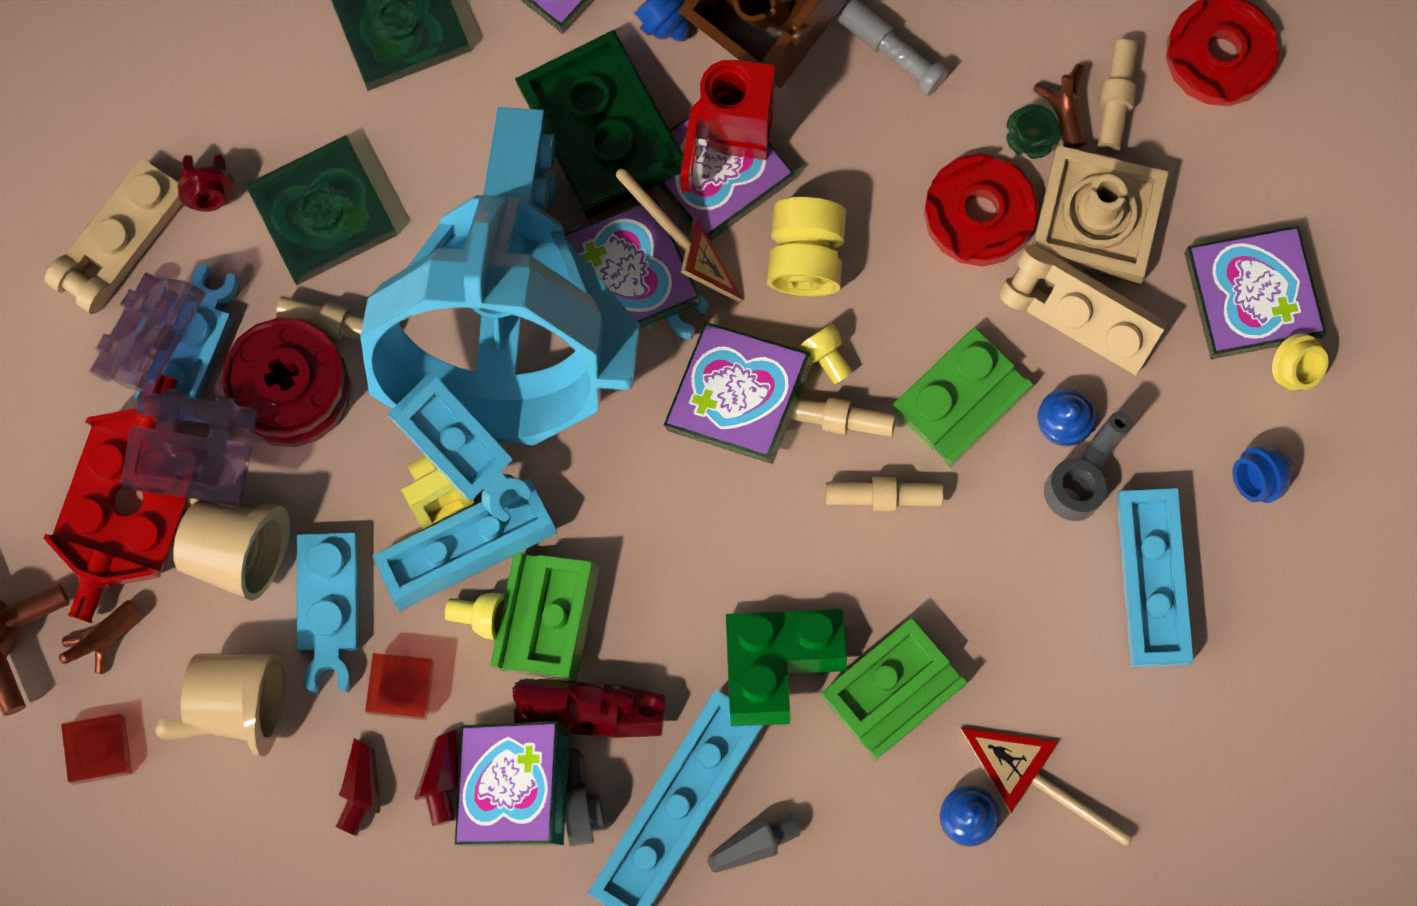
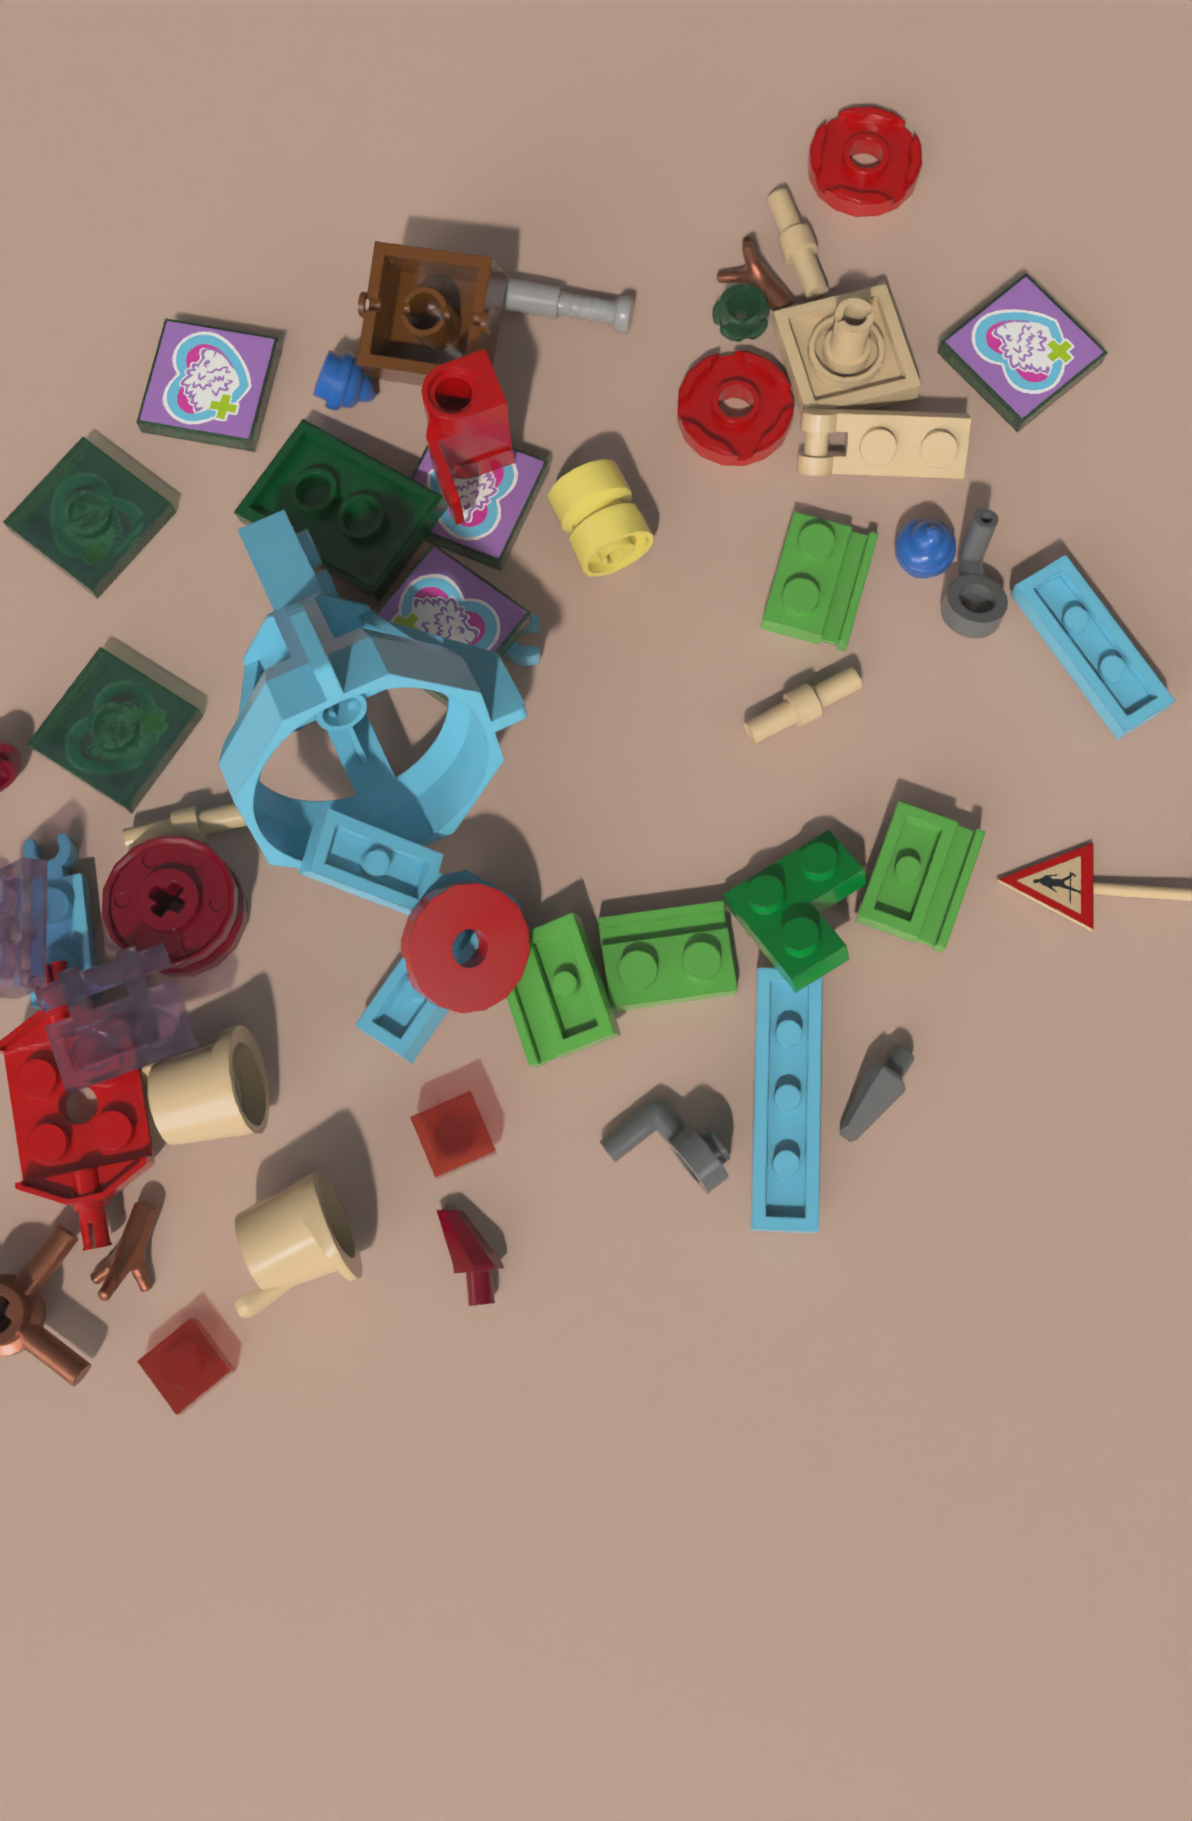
camera: 30 degrees left, 0 degrees up
(327, 604) = (336, 1096): medium azure plate -> none
(432, 494) = (376, 934): light yellow tile -> none
(440, 779) = (543, 1201): dark red bar -> none
(482, 614) = (491, 1023): light yellow piece -> none
(494, 575) = (500, 952): none -> red tile
(512, 784) = (620, 1165): tile -> none
(590, 707) = (647, 1054): dark red hinge -> none
(652, 638) = (667, 956): none -> bright green plate
(700, 258) = (507, 578): tan piece -> none
(738, 392) = (614, 684): tile -> none
(824, 350) = (668, 605): light yellow piece -> none
(839, 417) = (718, 657): tan bar -> none
(969, 816) = (1058, 953): blue plate -> none
(1263, 473) = (1129, 504): blue plate -> none
(1300, 362) = (1101, 389): light yellow plate -> none

